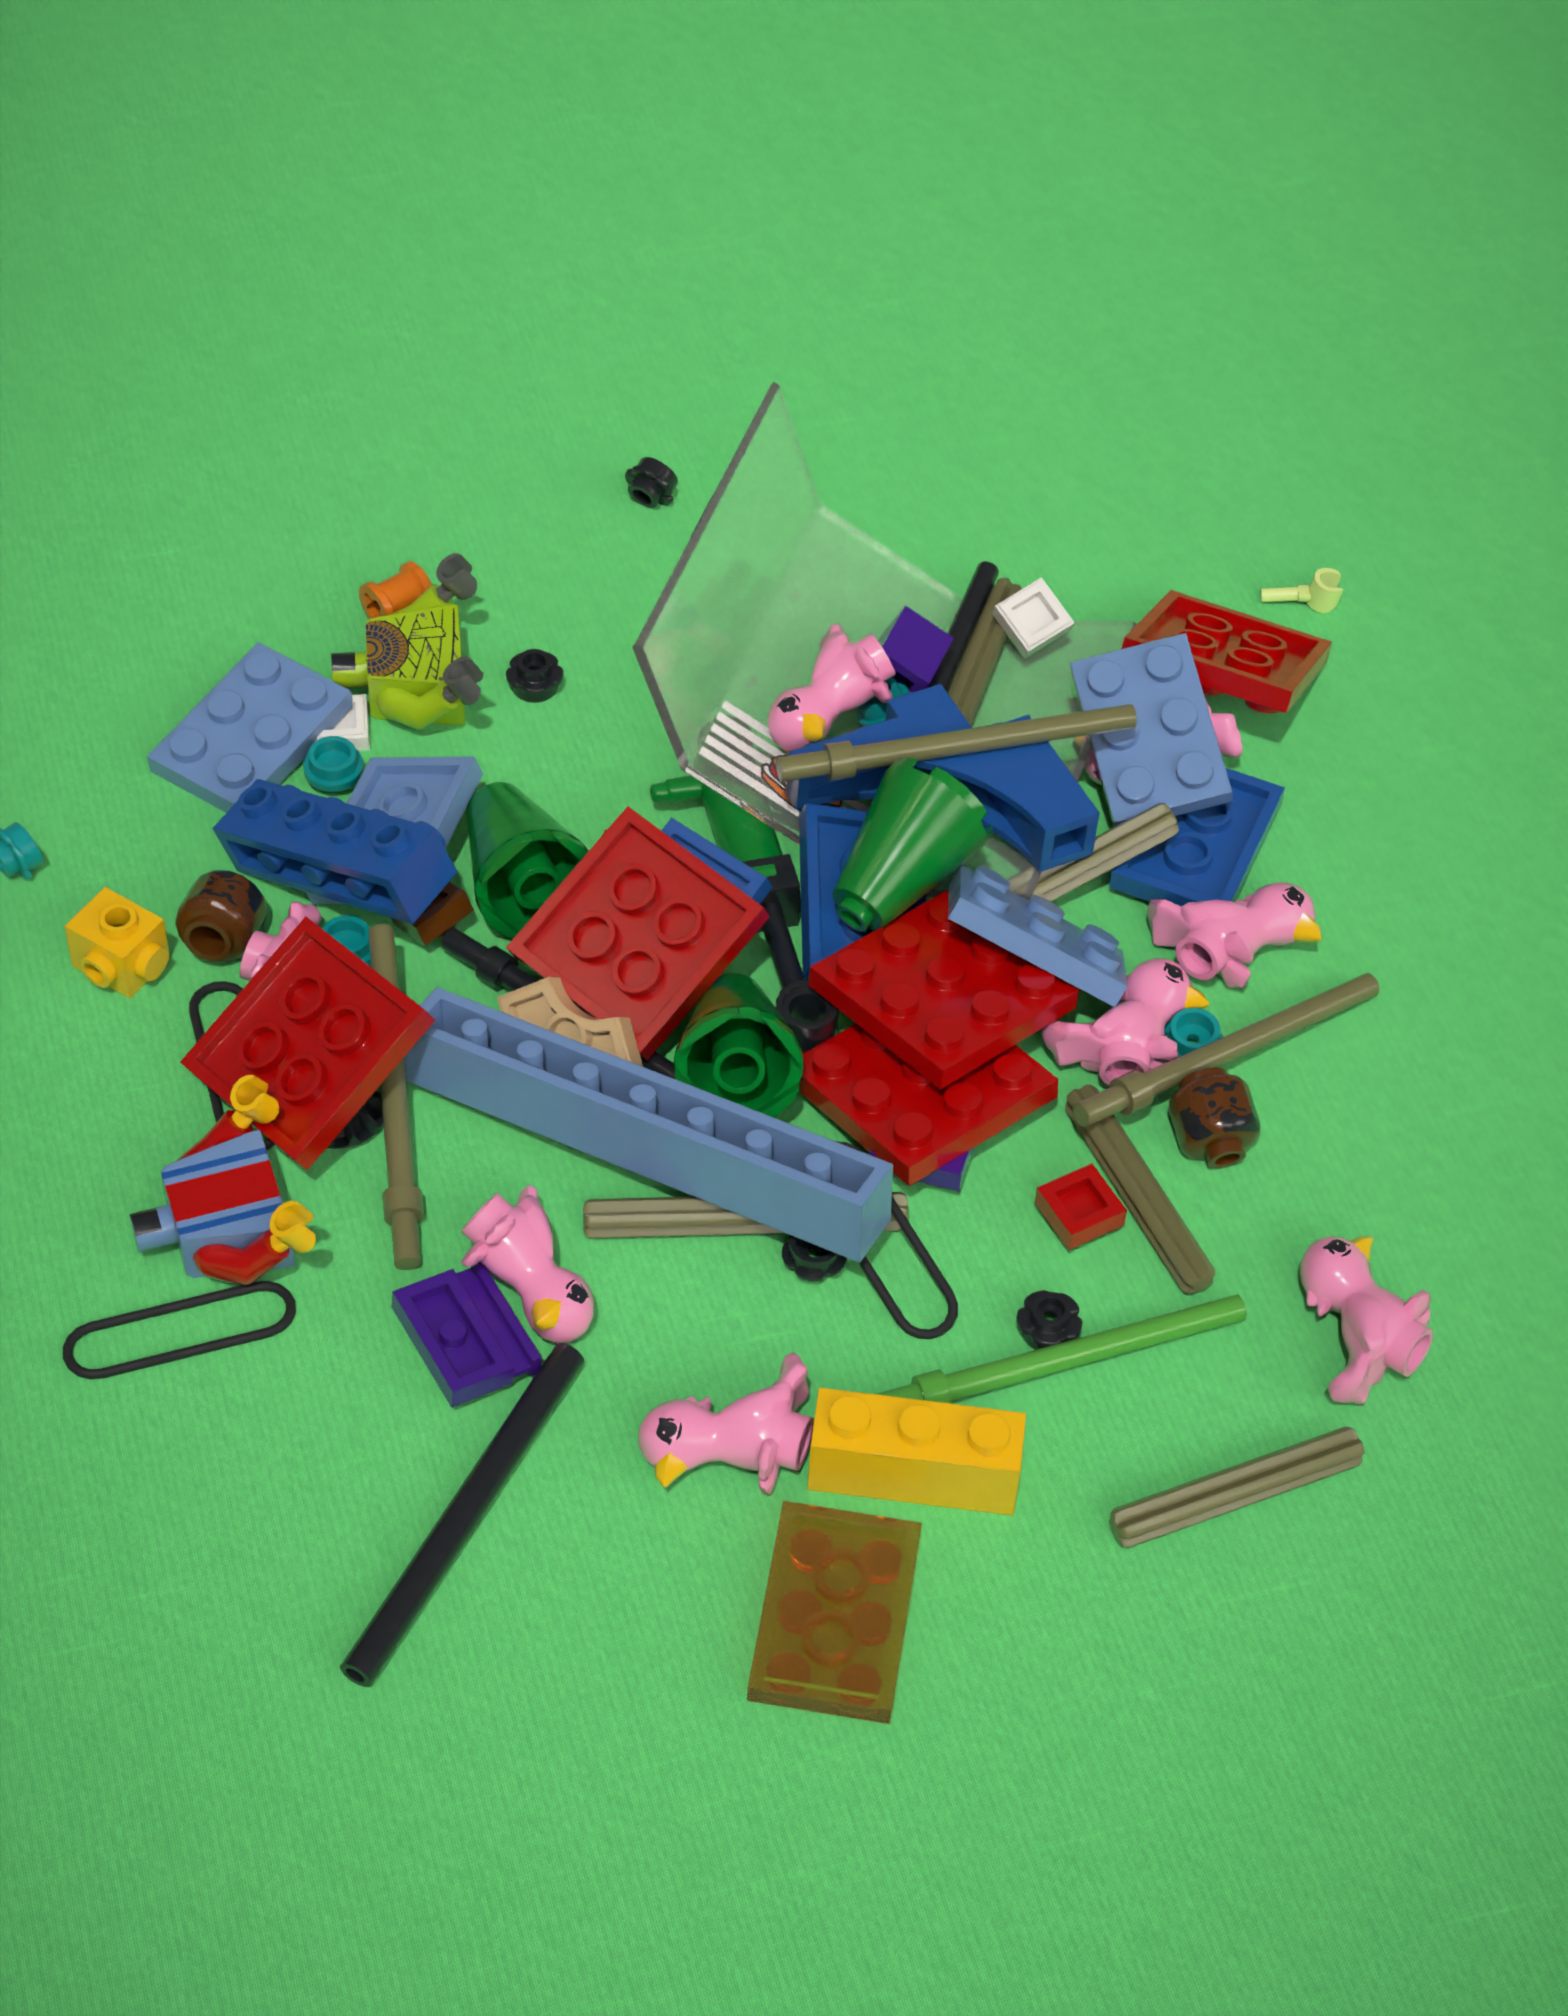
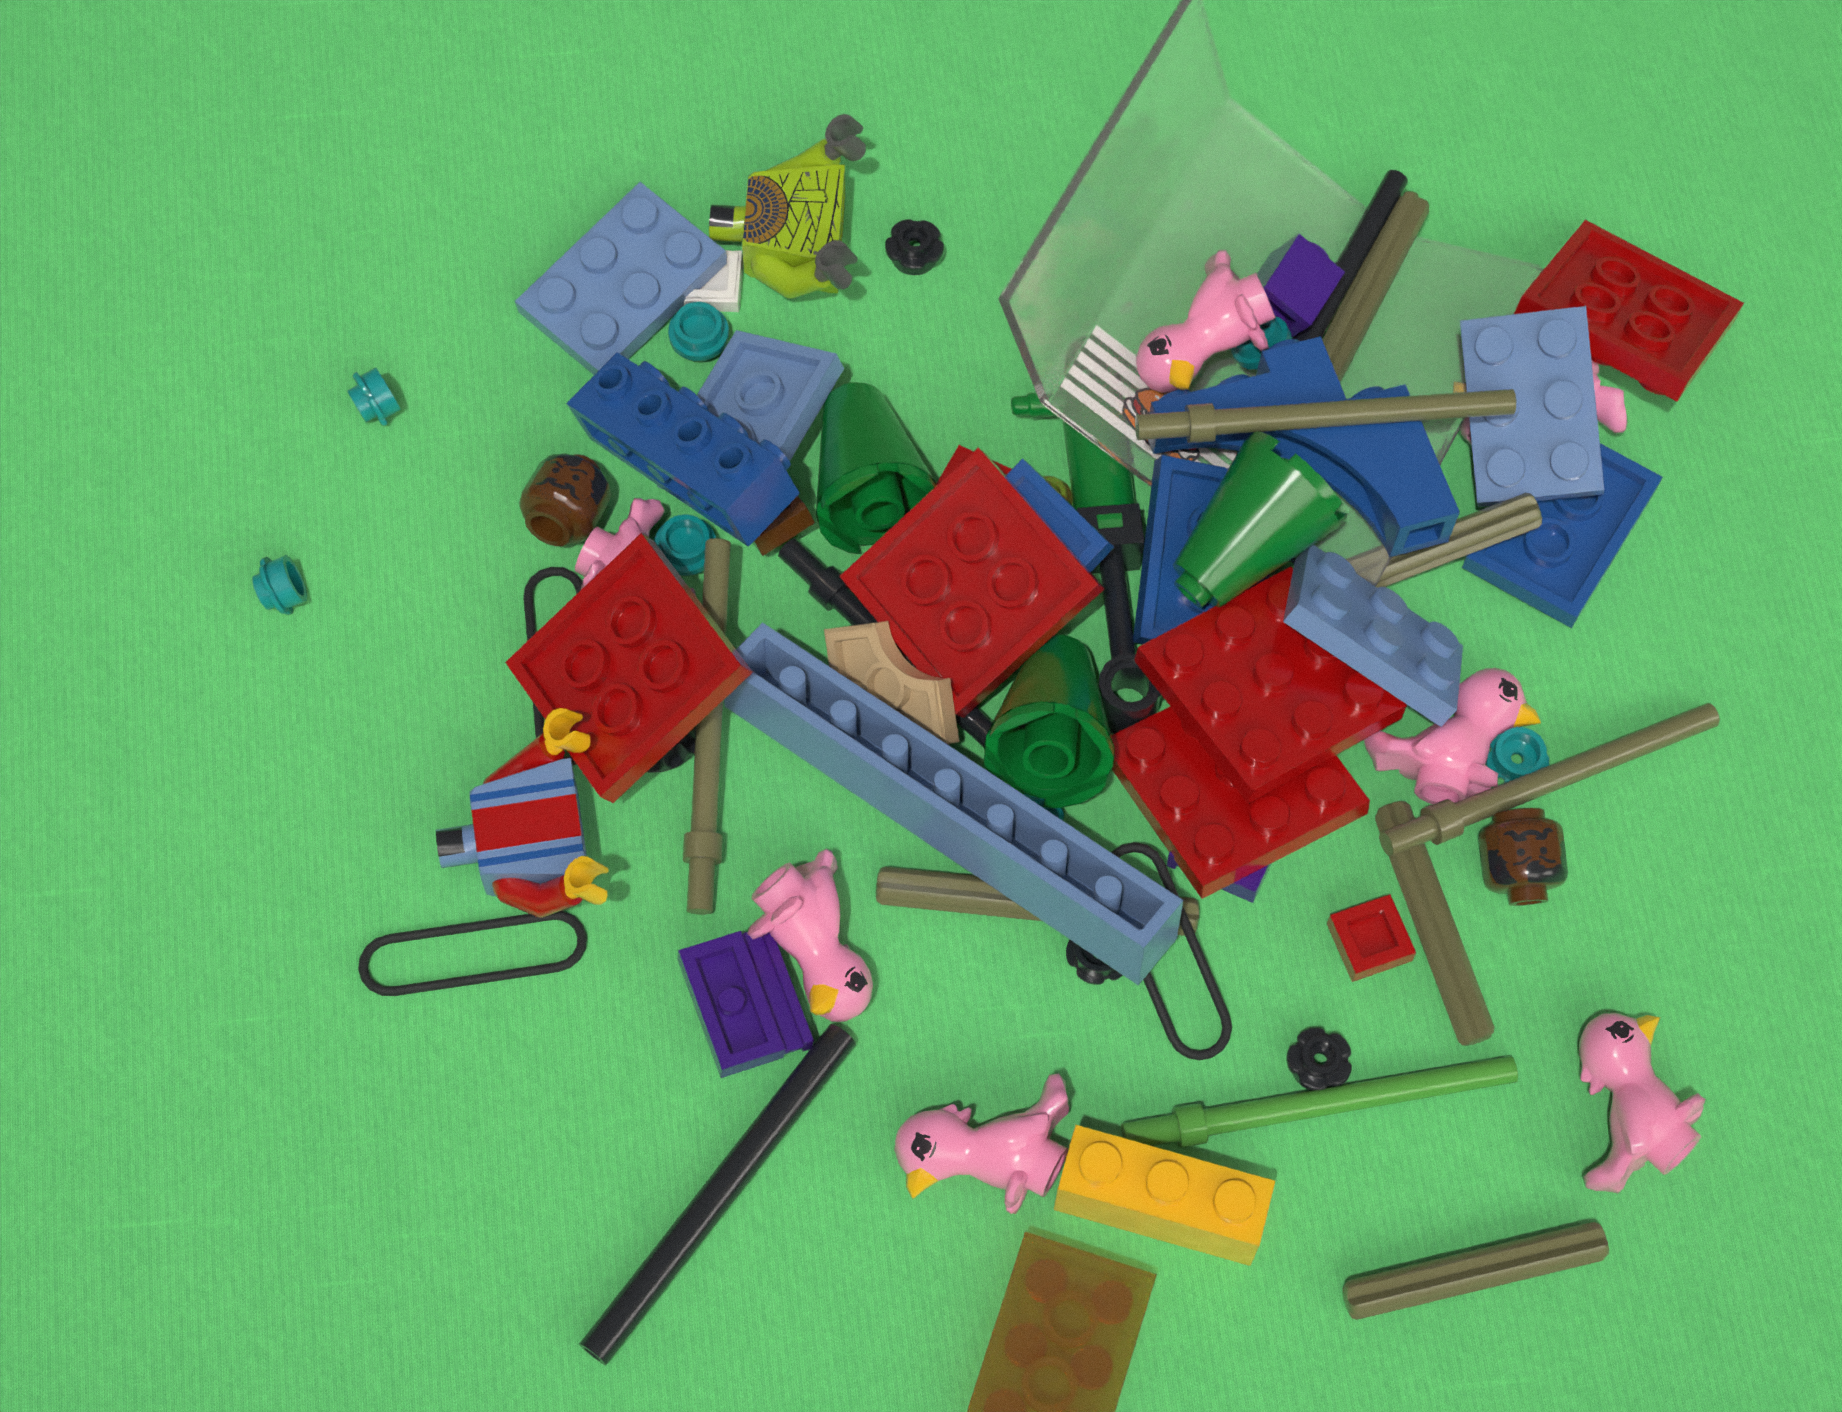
camera: 10 degrees right, 15 degrees up
(117, 943) = (460, 518): yellow brick -> none
(394, 592) = (785, 137): orange bush -> none
(651, 482) = (1065, 28): black plate -> none
(1033, 618) = (1433, 247): white tile -> none
(1227, 934) = (1570, 646): bright pink animal -> none
(1320, 595) = (1737, 238): yellowish green hand -> none

